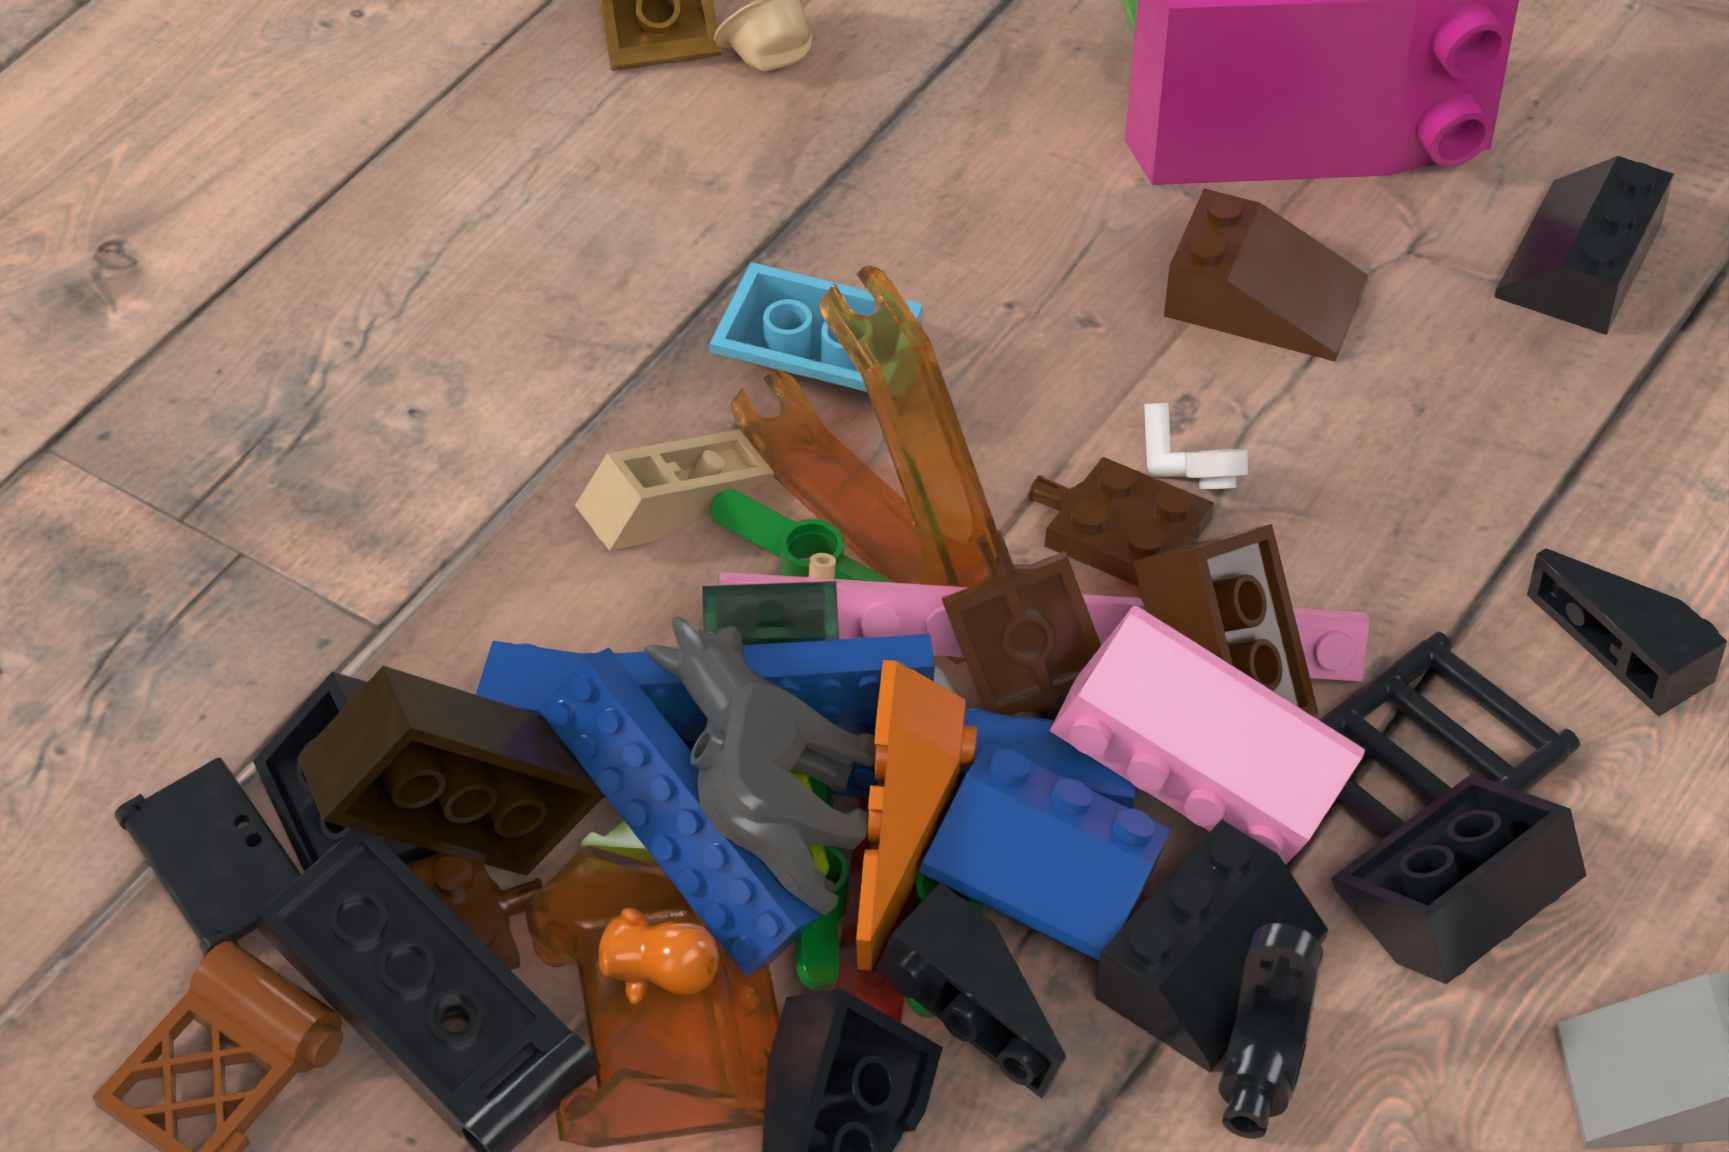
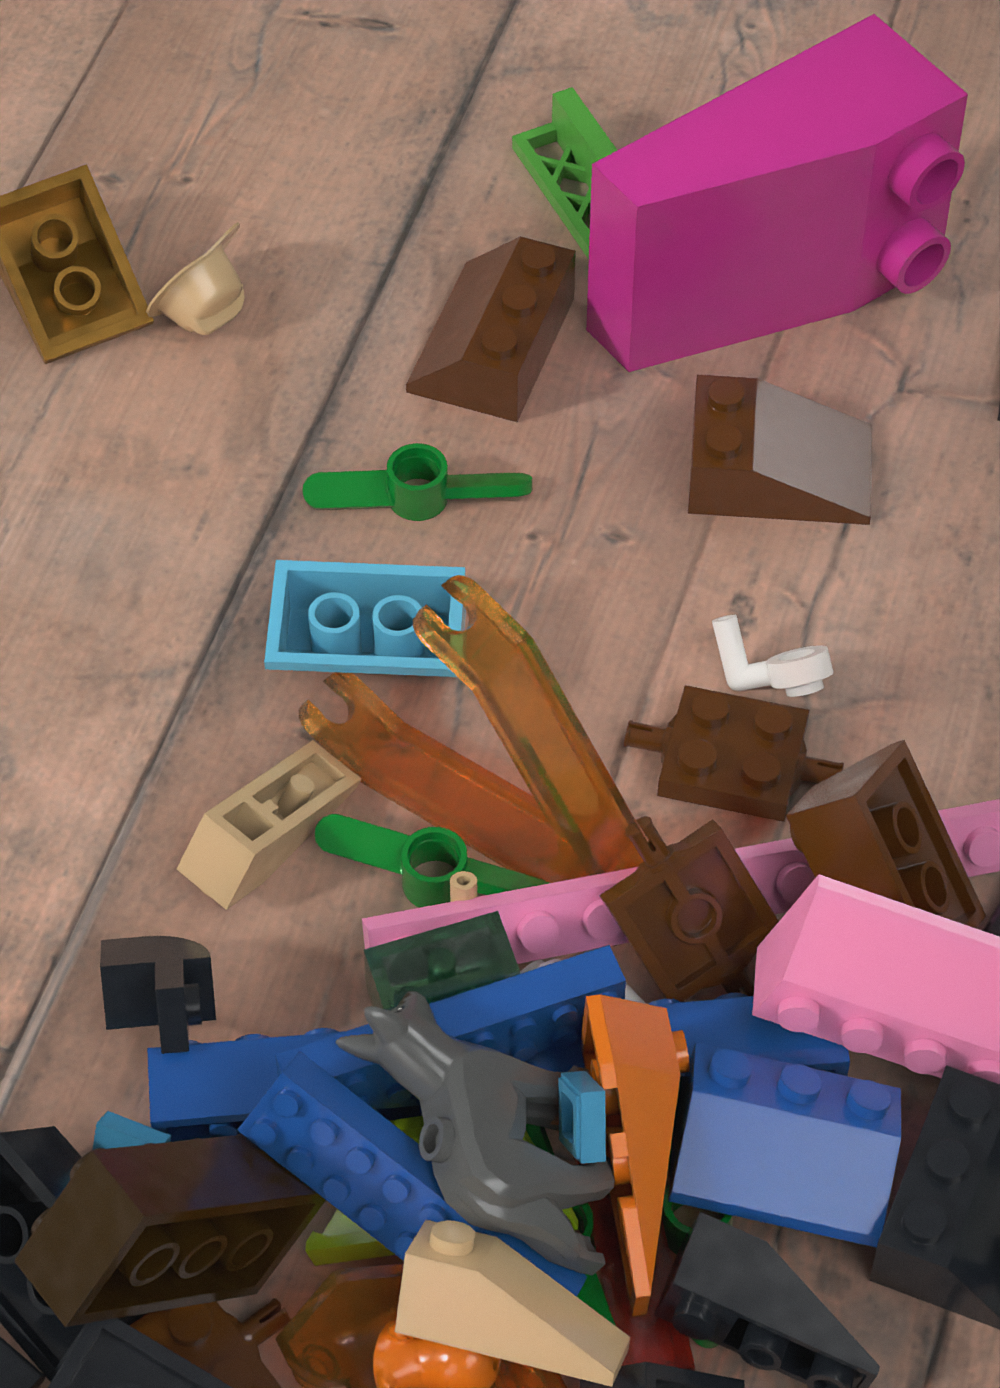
camera: 15 degrees left, 5 degrees up
(519, 593) = (159, 984): none -> black brick
(724, 907) = (496, 1303): none -> tan slope
(852, 769) = (582, 1116): none -> dark azure tile
(908, 235) = (410, 502): none -> green piece
(1040, 120) = (497, 328): none -> reddish brown slope

